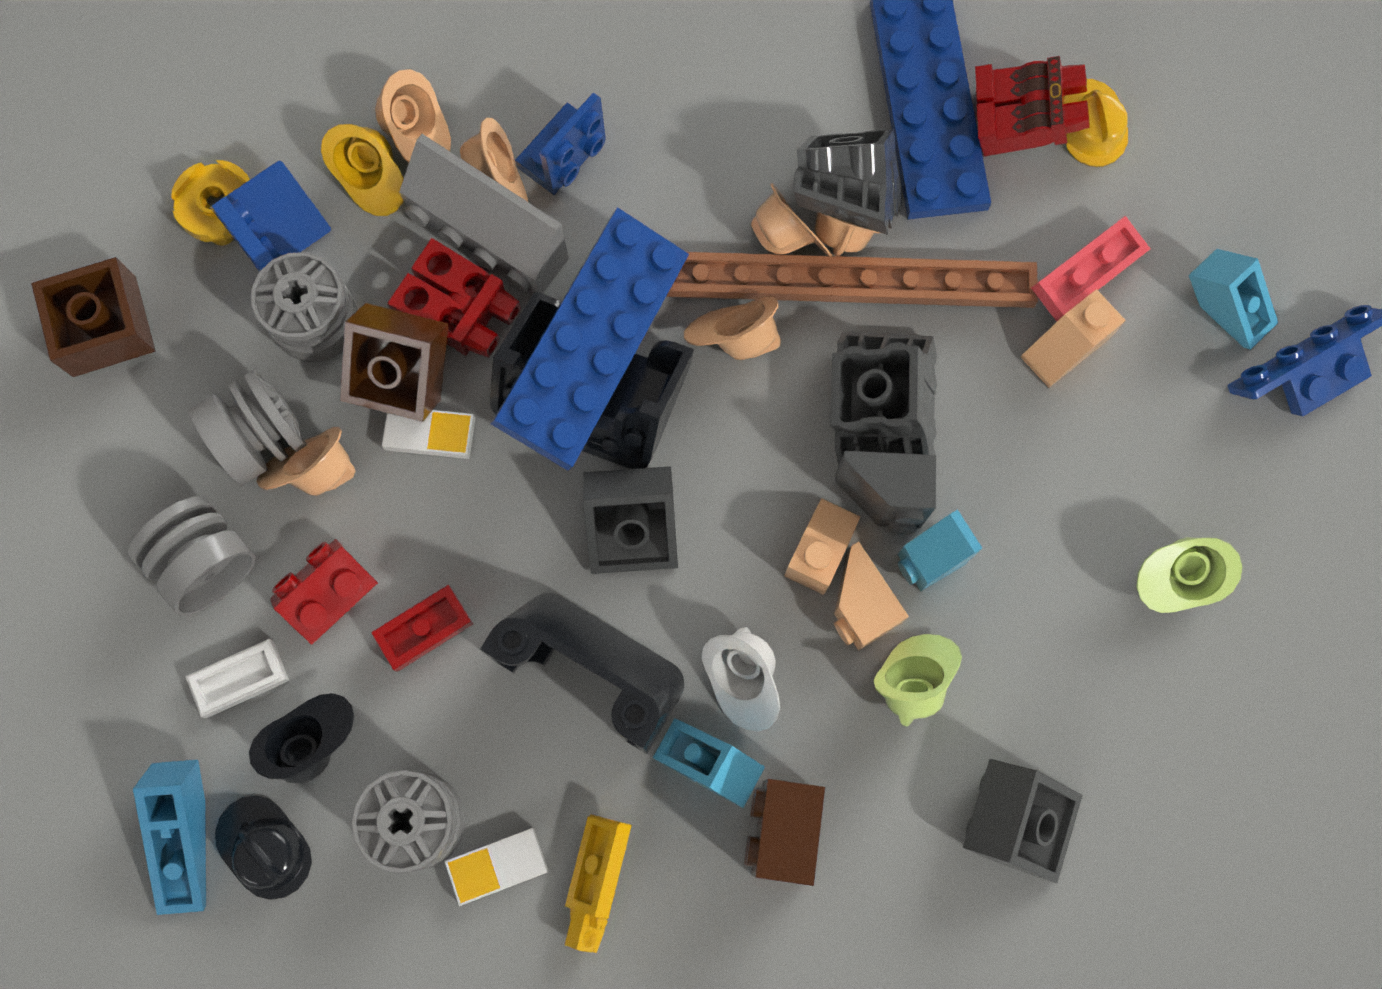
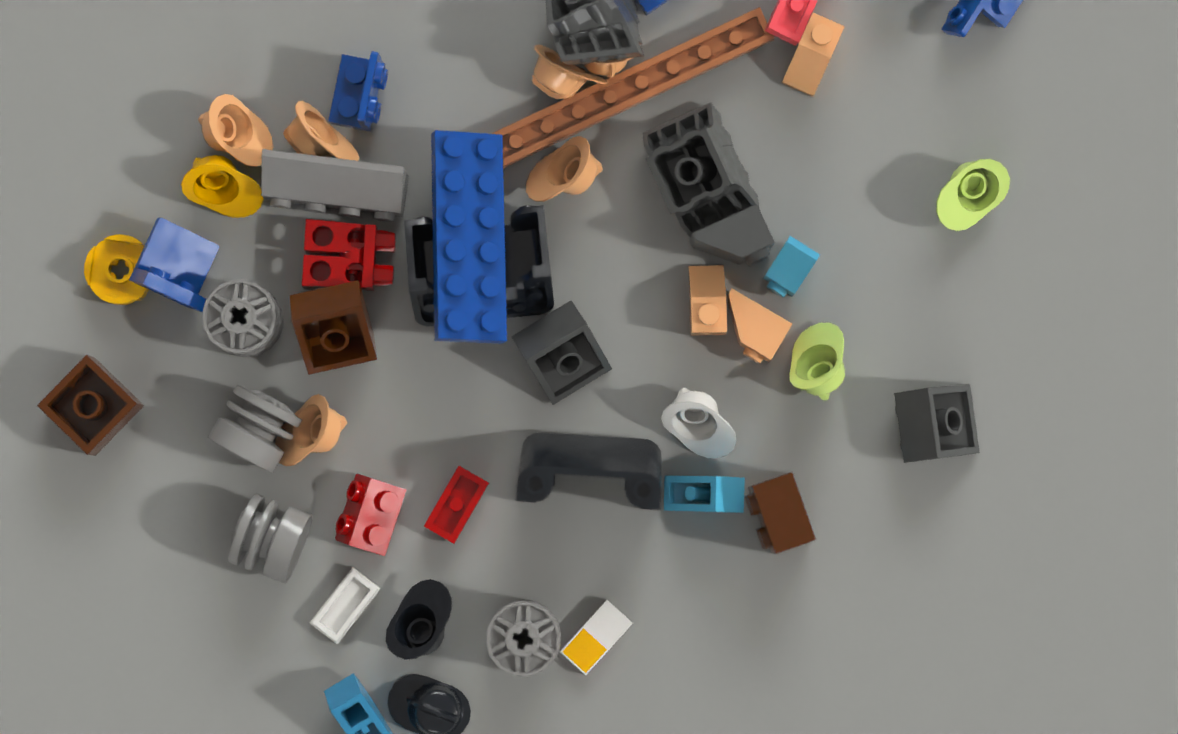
camera: 25 degrees left, 10 degrees up
(438, 435) = (392, 359): tile -> none
(595, 881) = (668, 611): yellow hinge -> none

